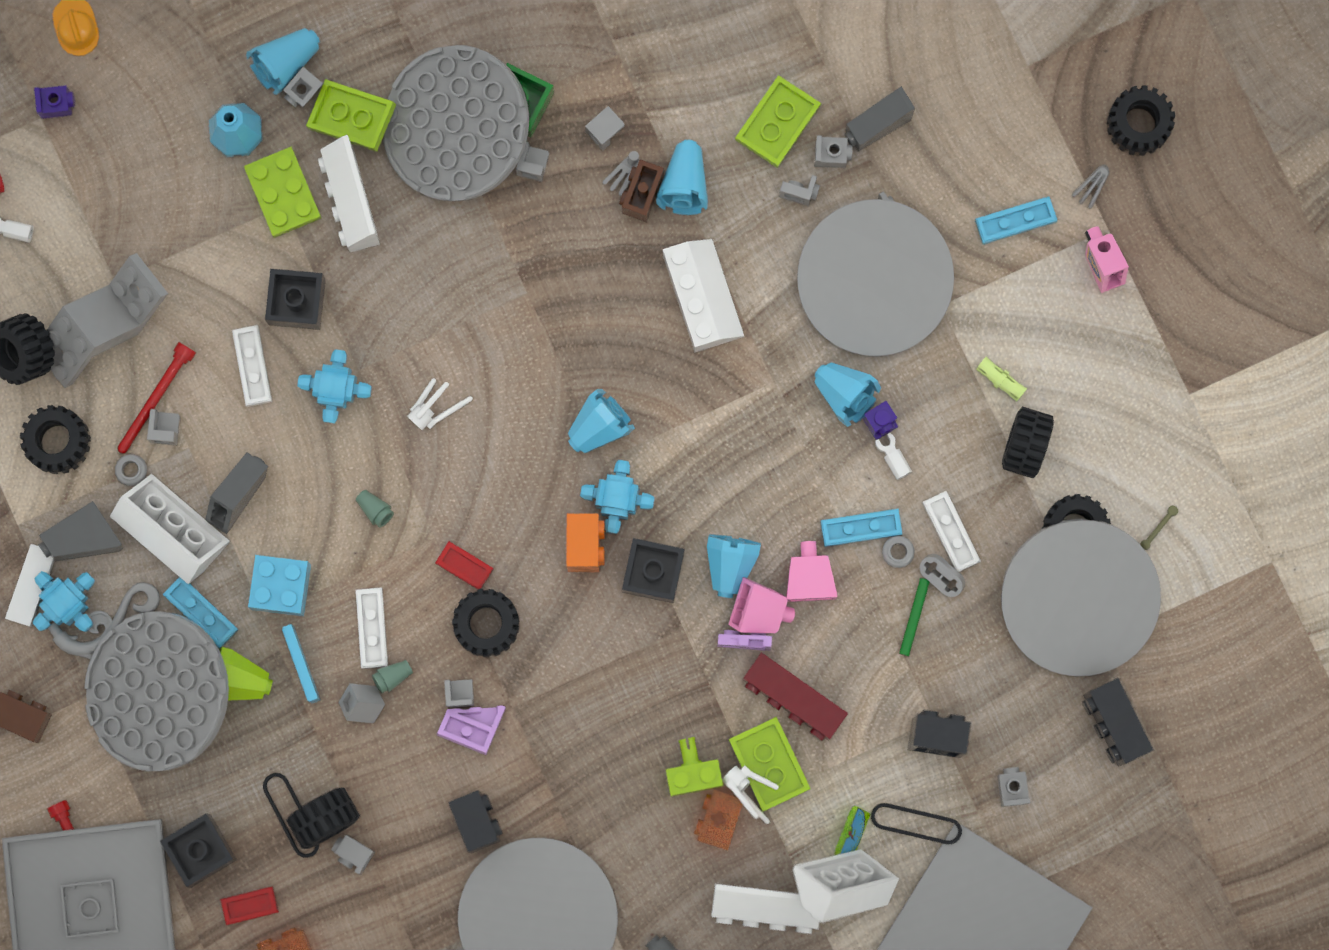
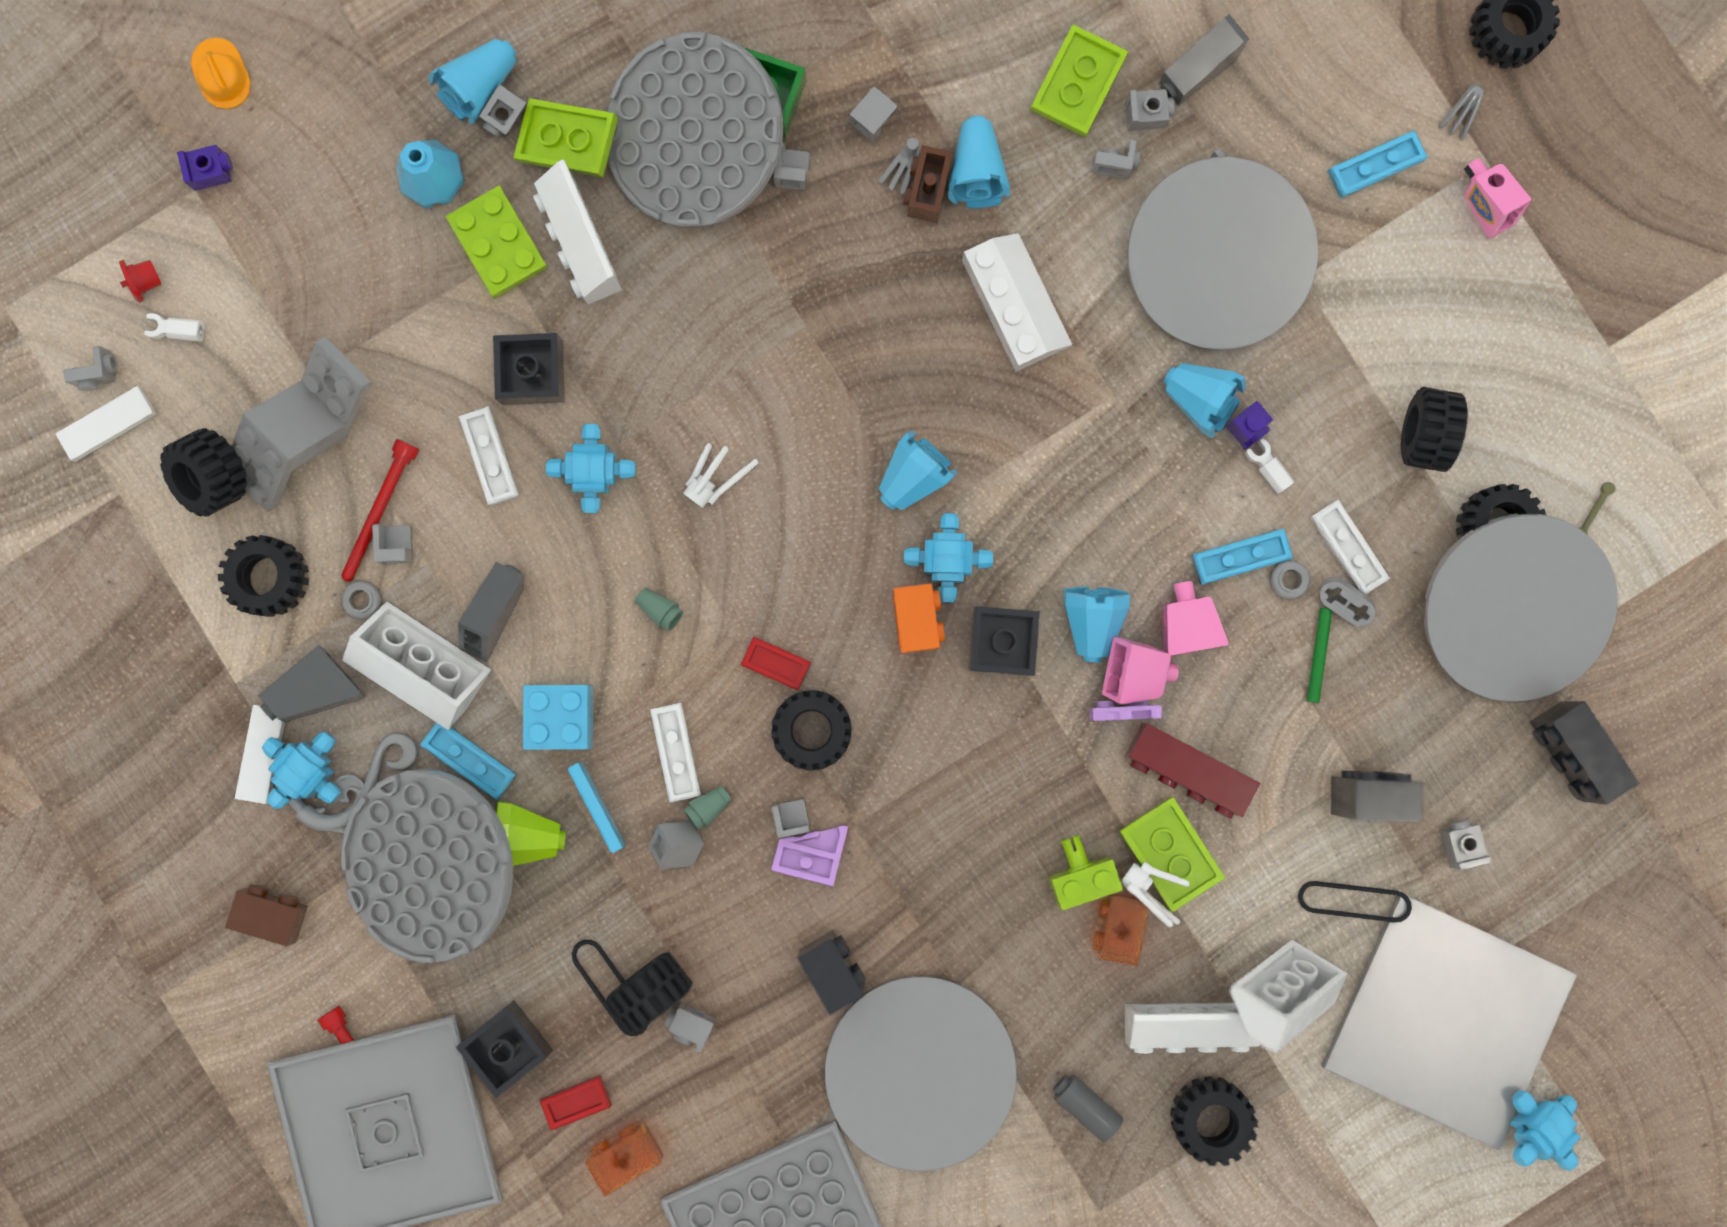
camera: 10 degrees left, 5 degrees up
(852, 831) = (1278, 922): slope -> none
(1001, 379) = (1386, 357): yellowish green pin -> none

